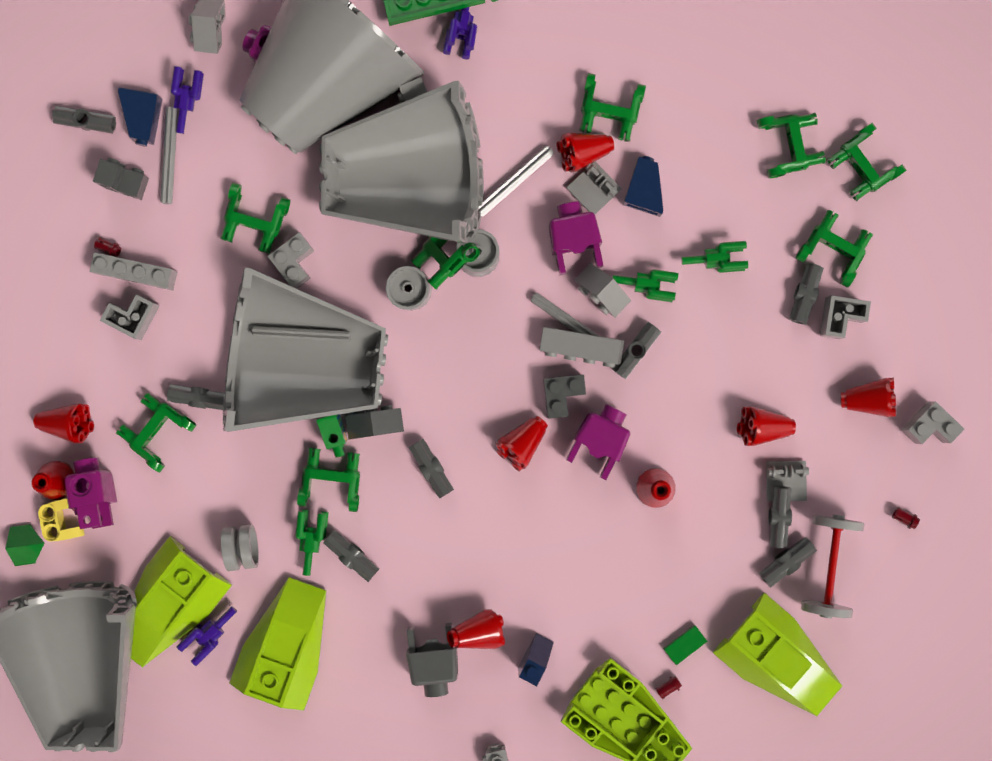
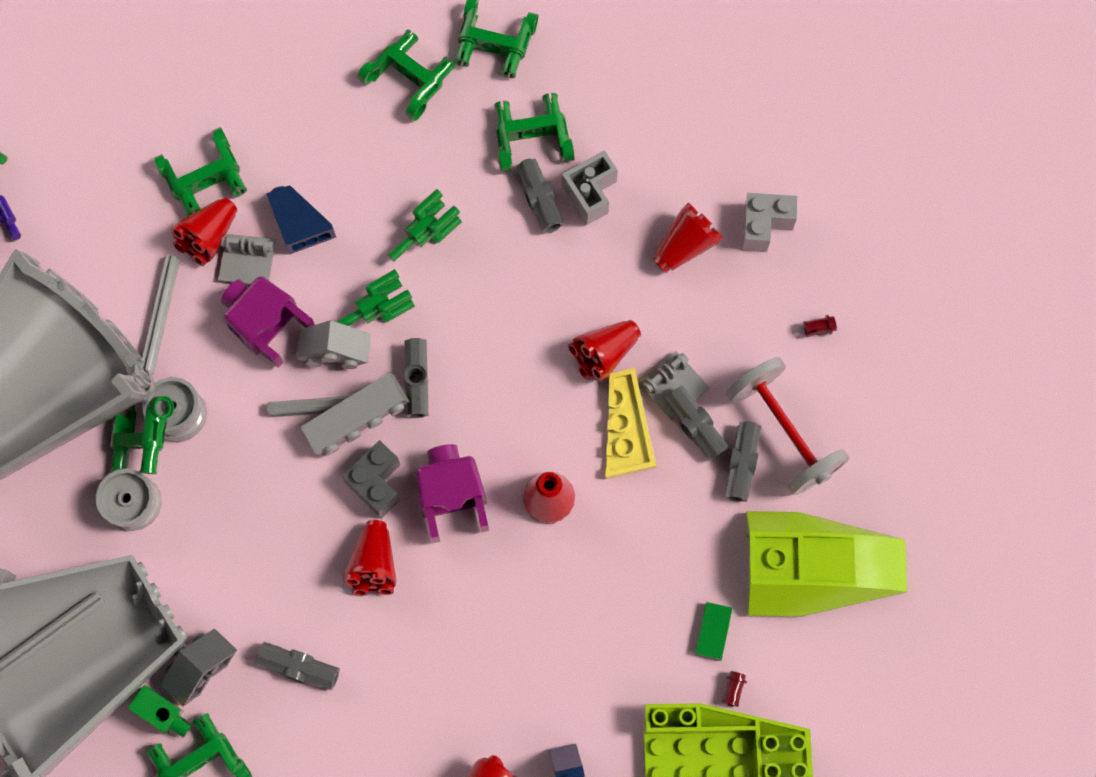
camera: 40 degrees left, 15 degrees down
(735, 487) = (629, 438): none -> light yellow wing

